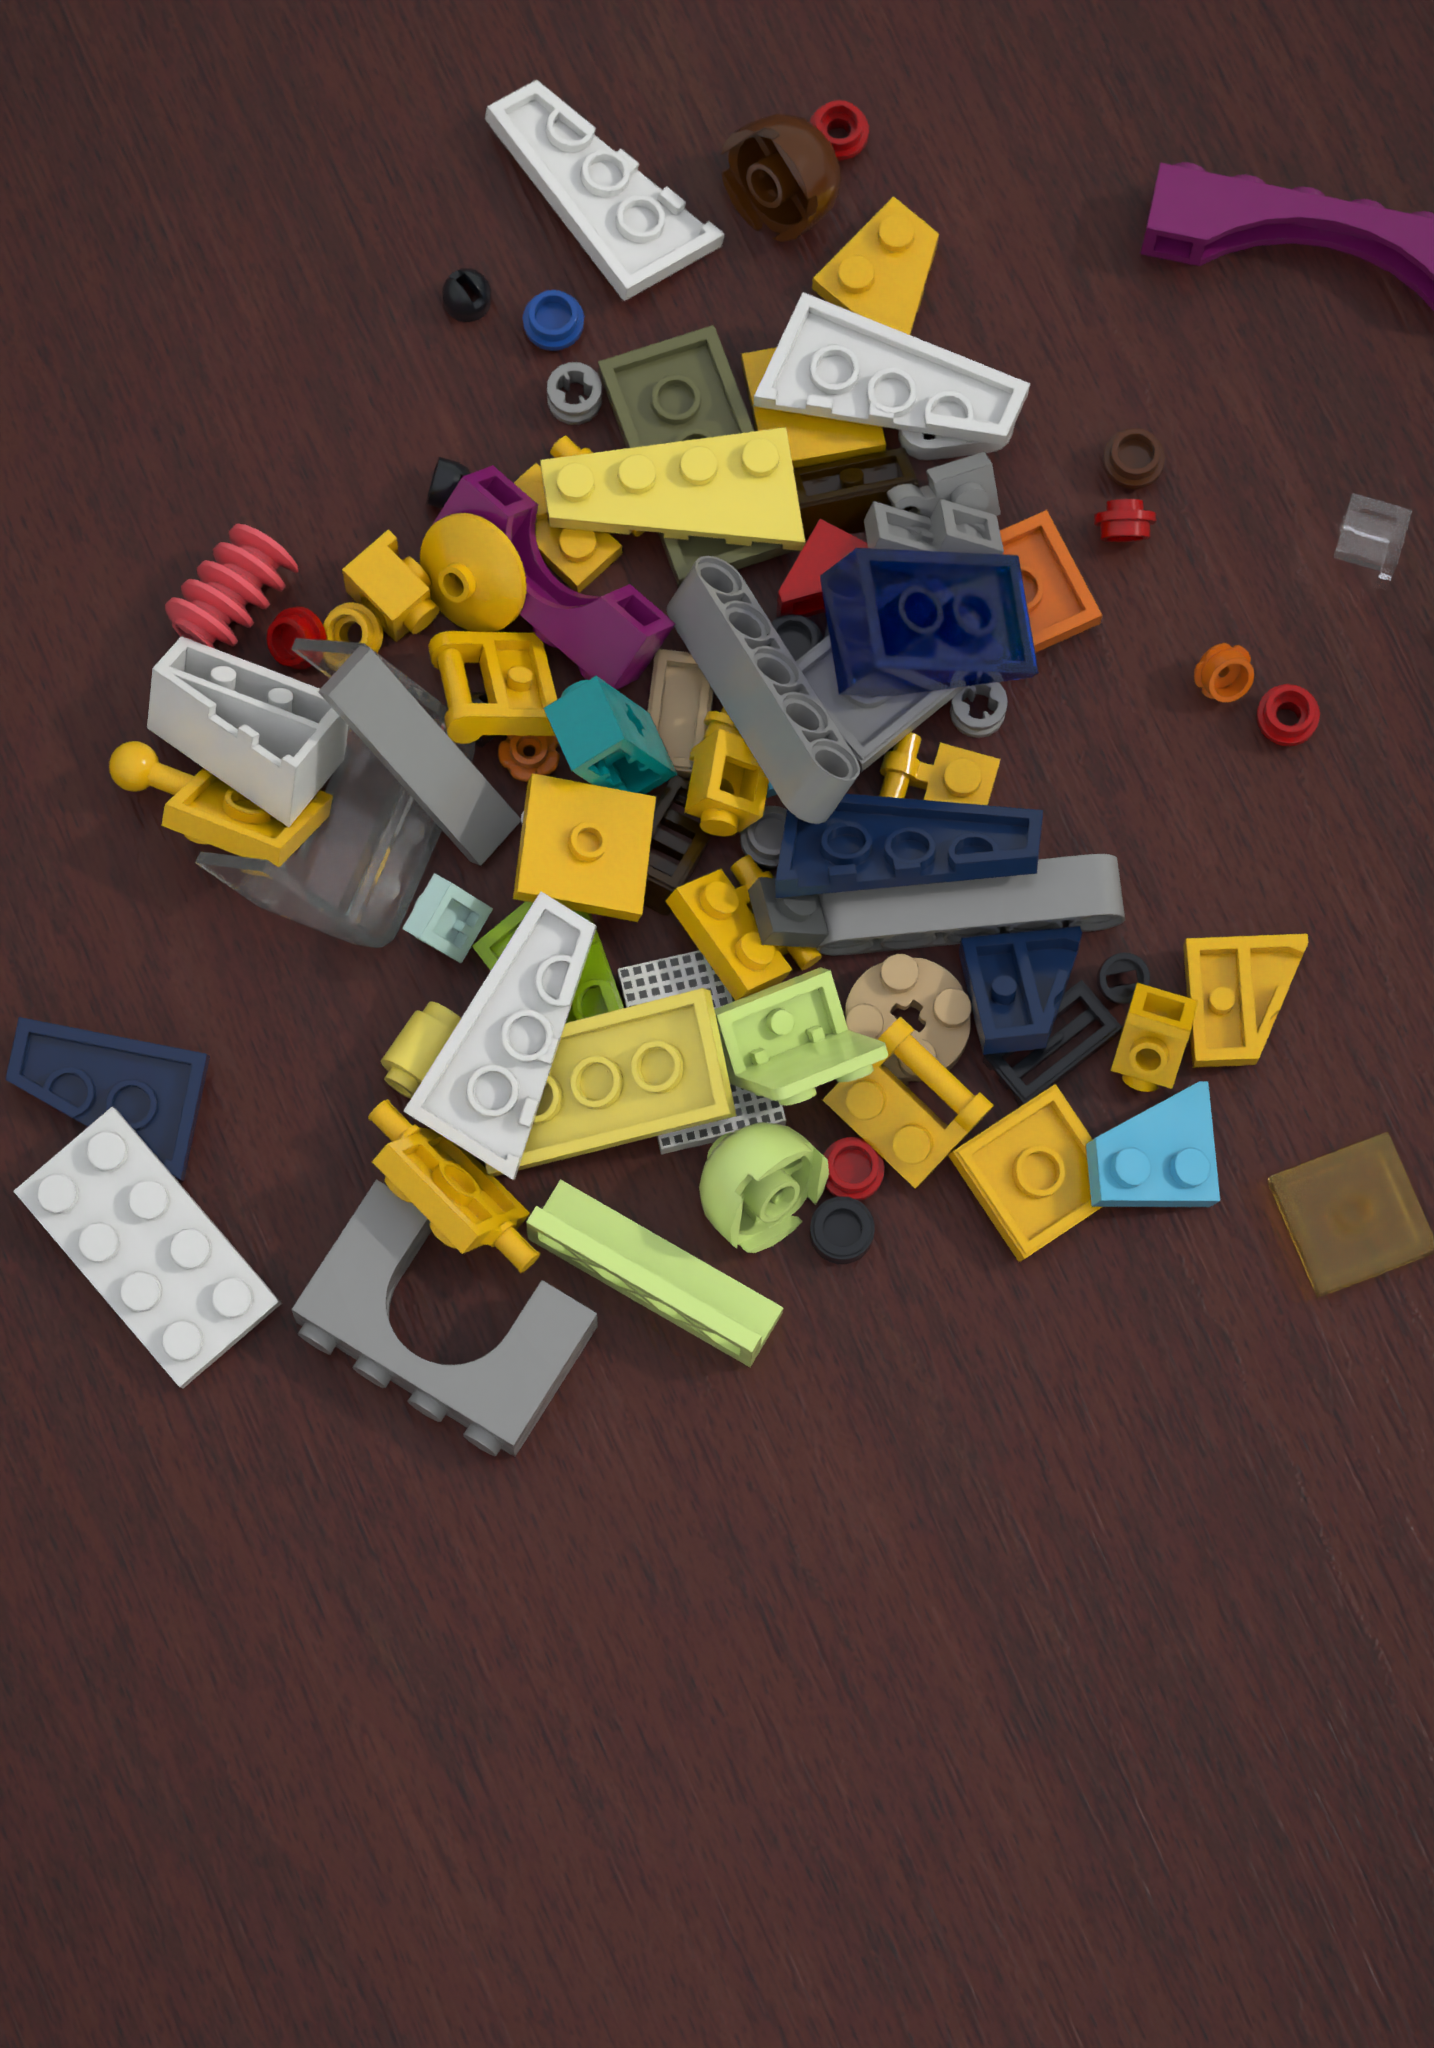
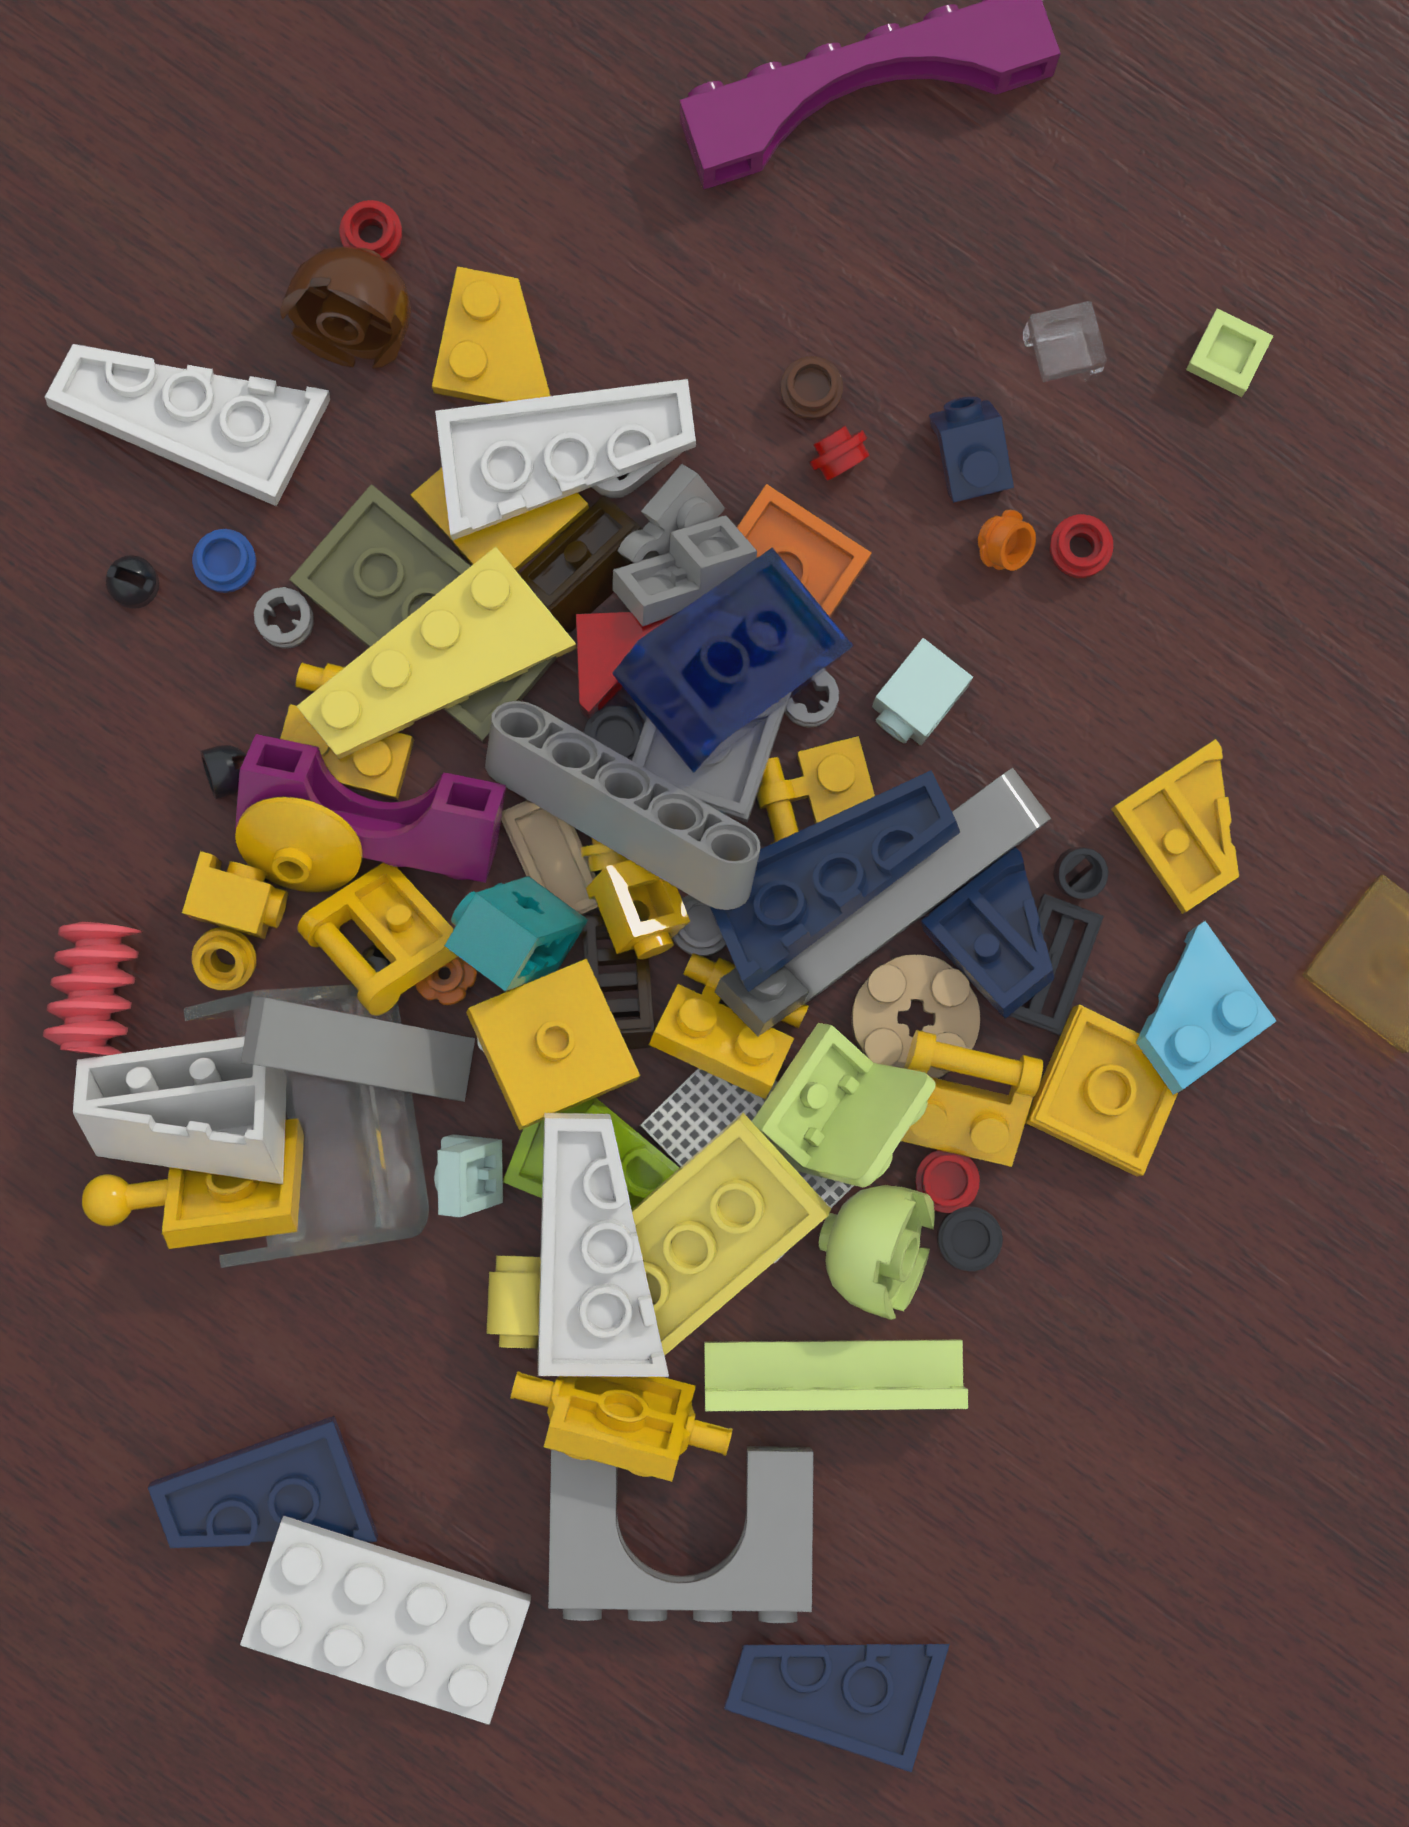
camera: 30 degrees left, 10 degrees up
(286, 627) = (175, 988): red plate -> none
(496, 1547) = (842, 1695): none -> dark blue wing
(1074, 753) = (920, 693): none -> light aqua brick
(1153, 1038) = (1145, 927): yellow brick -> none
(1241, 582) = (972, 448): none -> dark blue bracket

